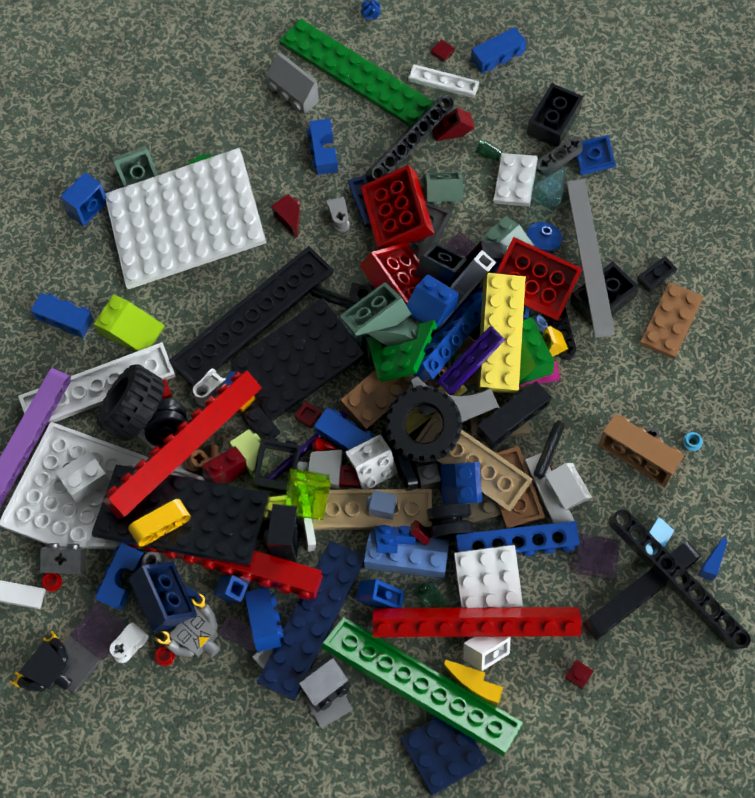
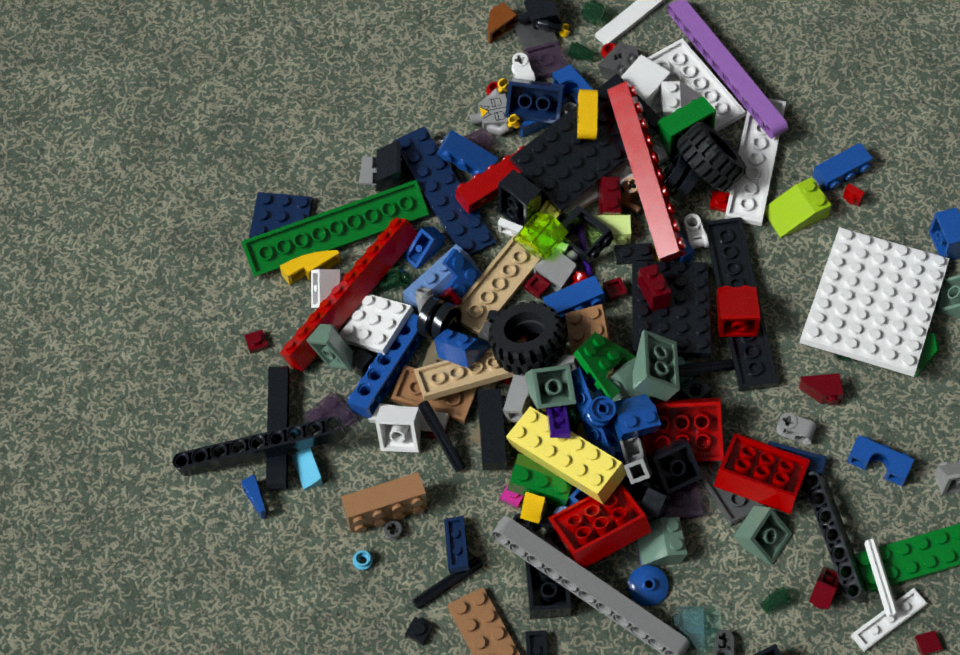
camera: 125 degrees right, 5 degrees down
(14, 622) = (594, 12): none -> clear green head
(70, 608) = (580, 52): none -> clear green cone
(73, 519) = (646, 77): none -> white brick
(80, 706) = (500, 21): none -> dark orange slope
(87, 292) = (853, 195): none -> red plate
(107, 445) = (675, 125): none -> green slope
(230, 589) = (506, 147): blue brick -> none
(268, 300) = (738, 311): none -> red slope
(294, 371) = (654, 287): none -> dark red brick
(372, 462) = (536, 290): white bracket -> none
(382, 504) = (491, 285): sand blue brick -> none
(420, 94) = (881, 578): none -> white axle
(441, 544) = (422, 296): none -> light grey cone
(451, 322) = (600, 412): none -> blue wheel
(456, 374) = (551, 386): none -> sand green slope
(515, 179) = (726, 601): white plate -> none
(529, 565) = (362, 361): none -> black piece
(542, 591) = (331, 347): none -> sand green slope
(625, 379) = (456, 544): none -> dark blue plate
(657, 369) = (445, 584): none -> black axle
(710, 363) = (418, 631): none -> black plate

